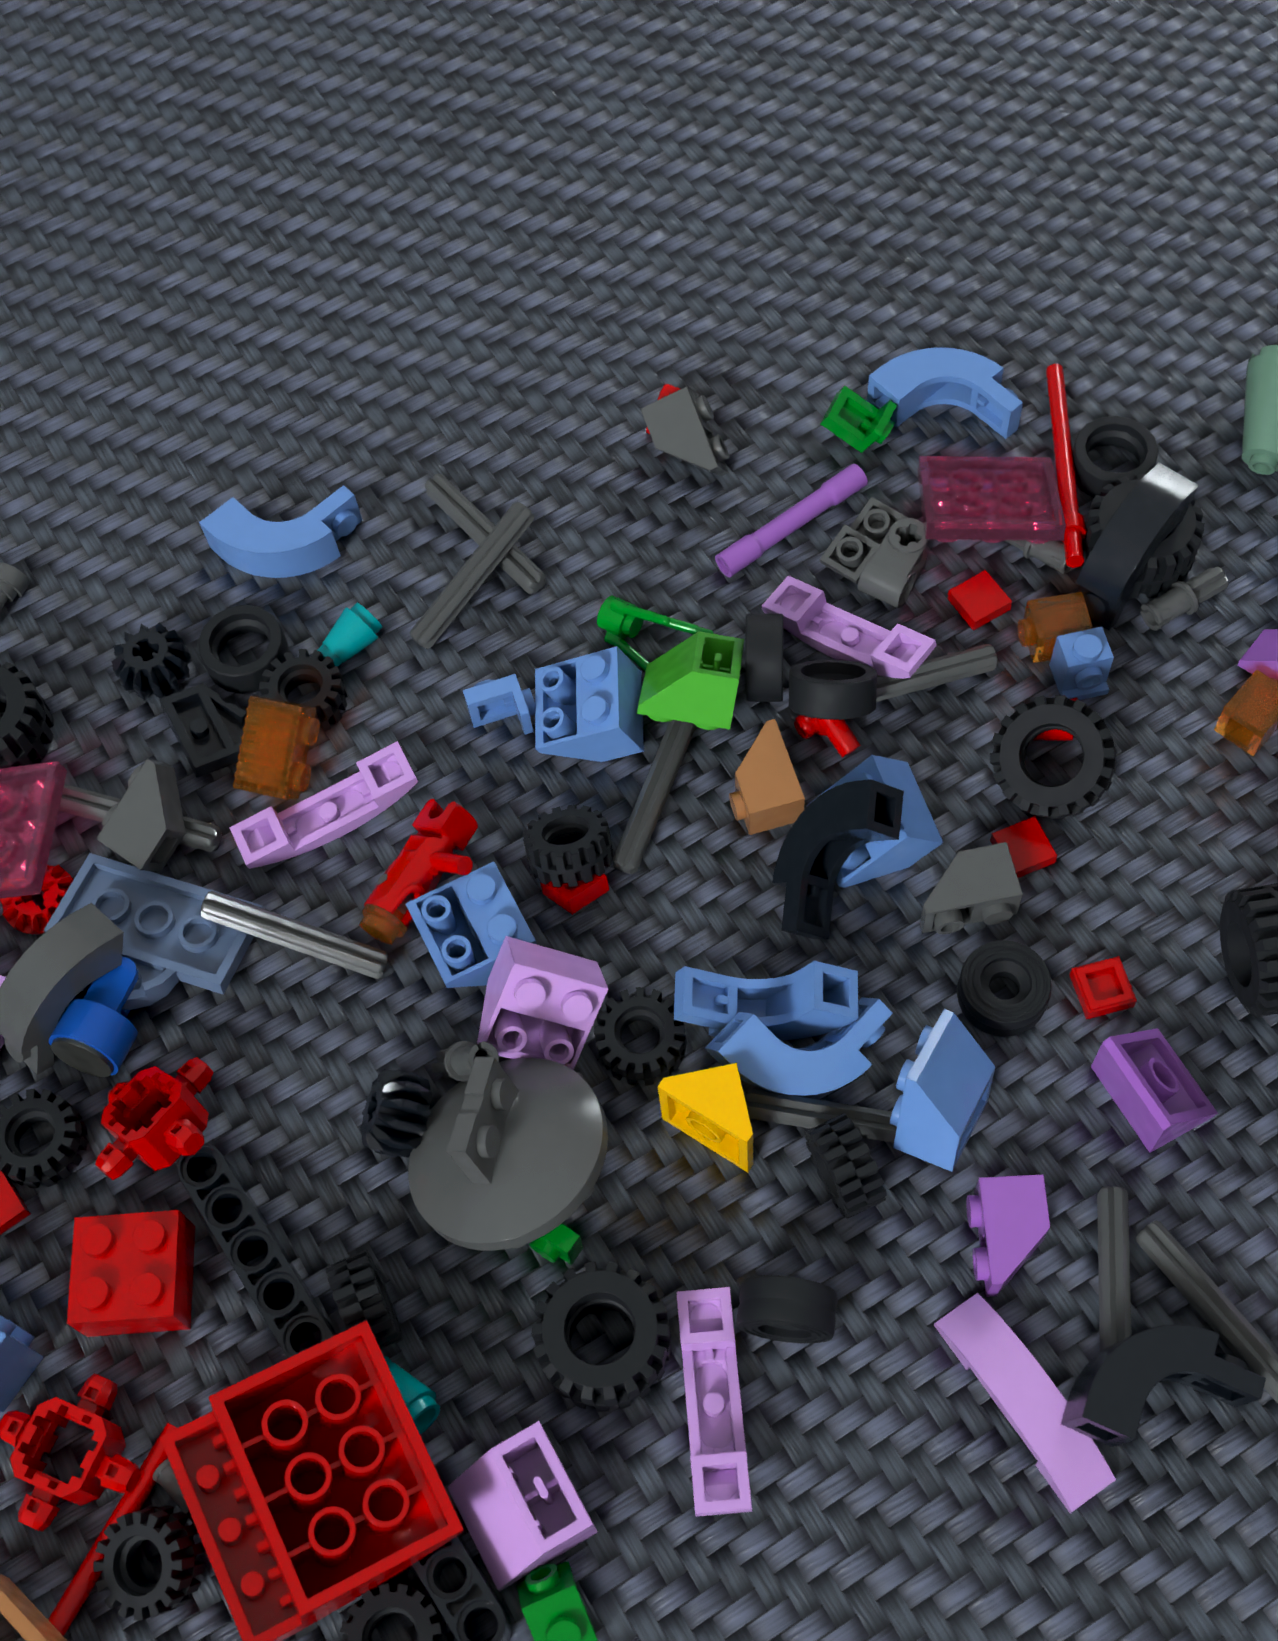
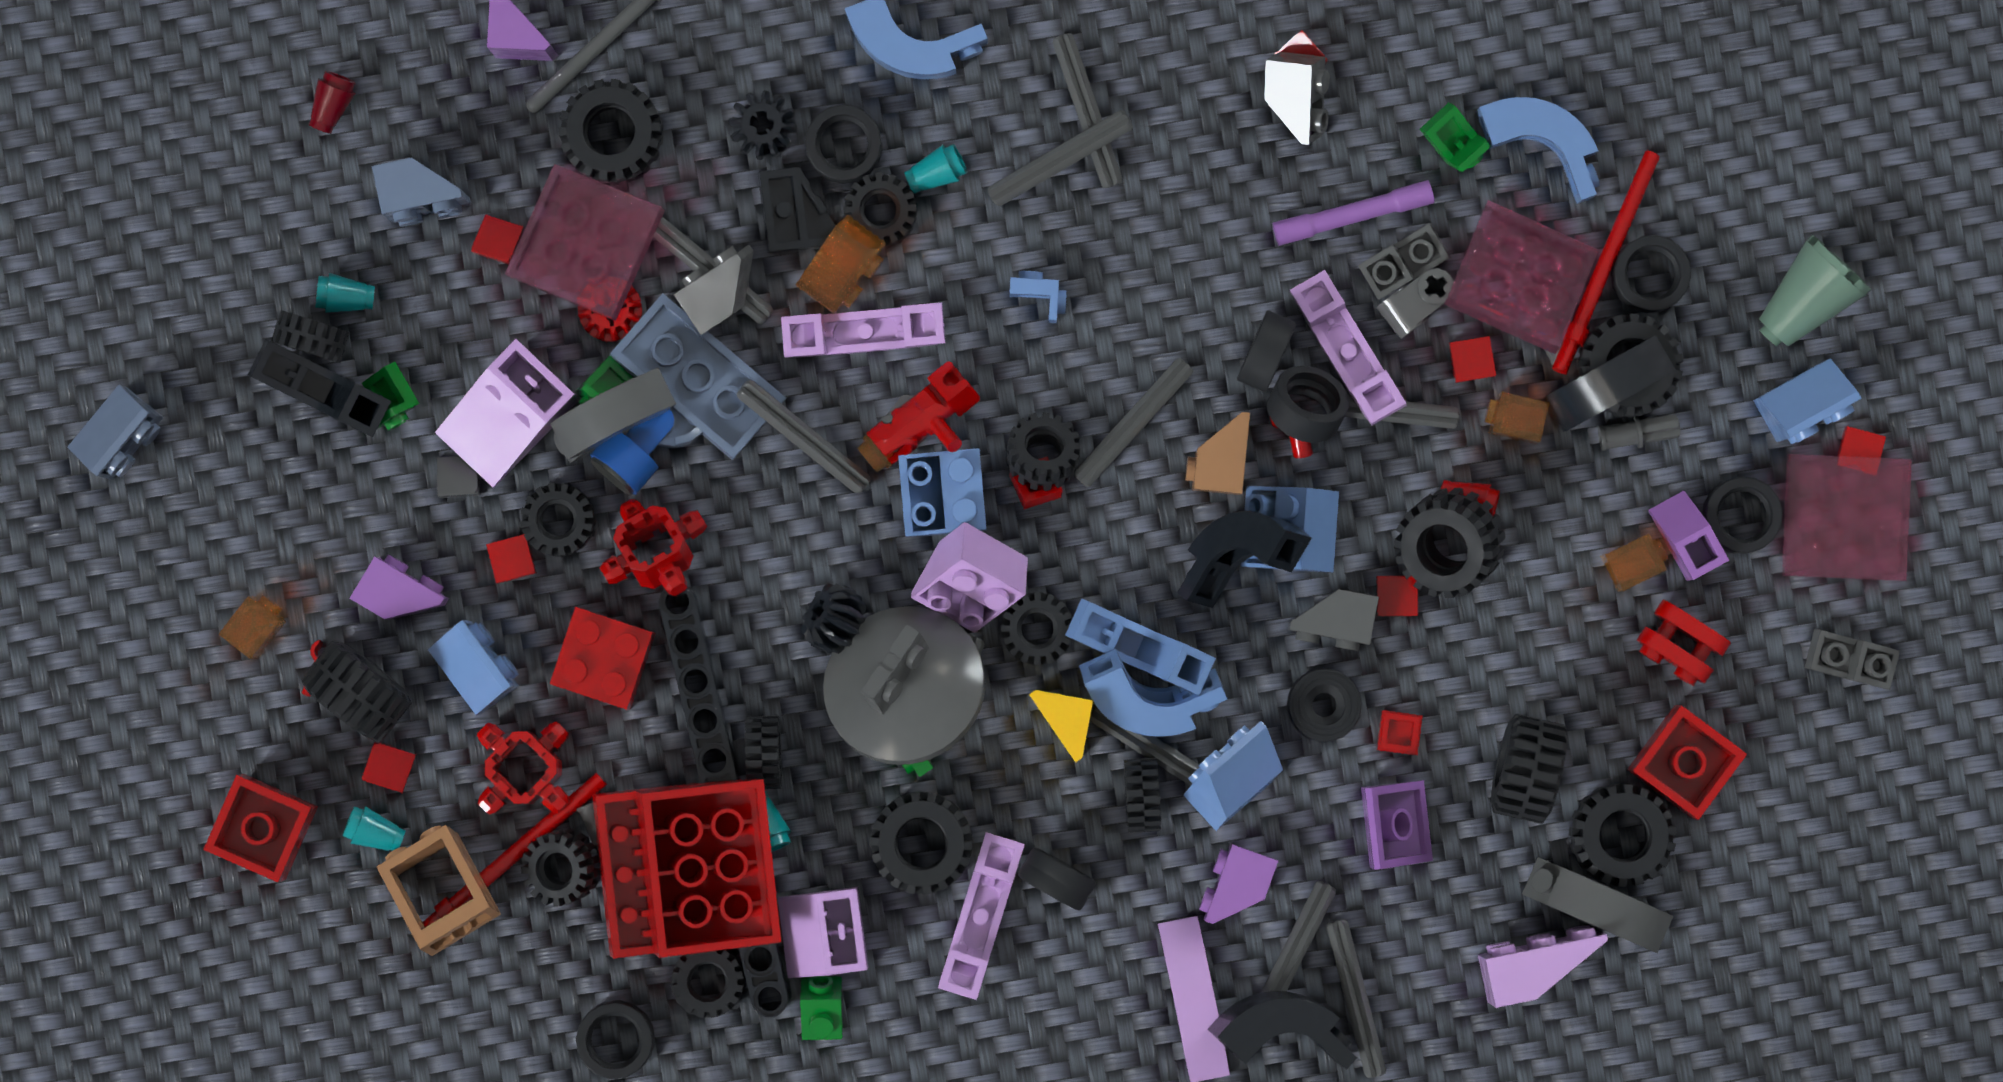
camera: 20 degrees right, 25 degrees up
(458, 1059) = (898, 601): dark grey axle -> none
(589, 707) = (1107, 331): medium blue slope -> none
(626, 619) = (1170, 252): green plant -> none
(694, 682) = (1199, 350): bright green slope -> none
(1082, 663) = (1519, 462): medium blue brick -> none

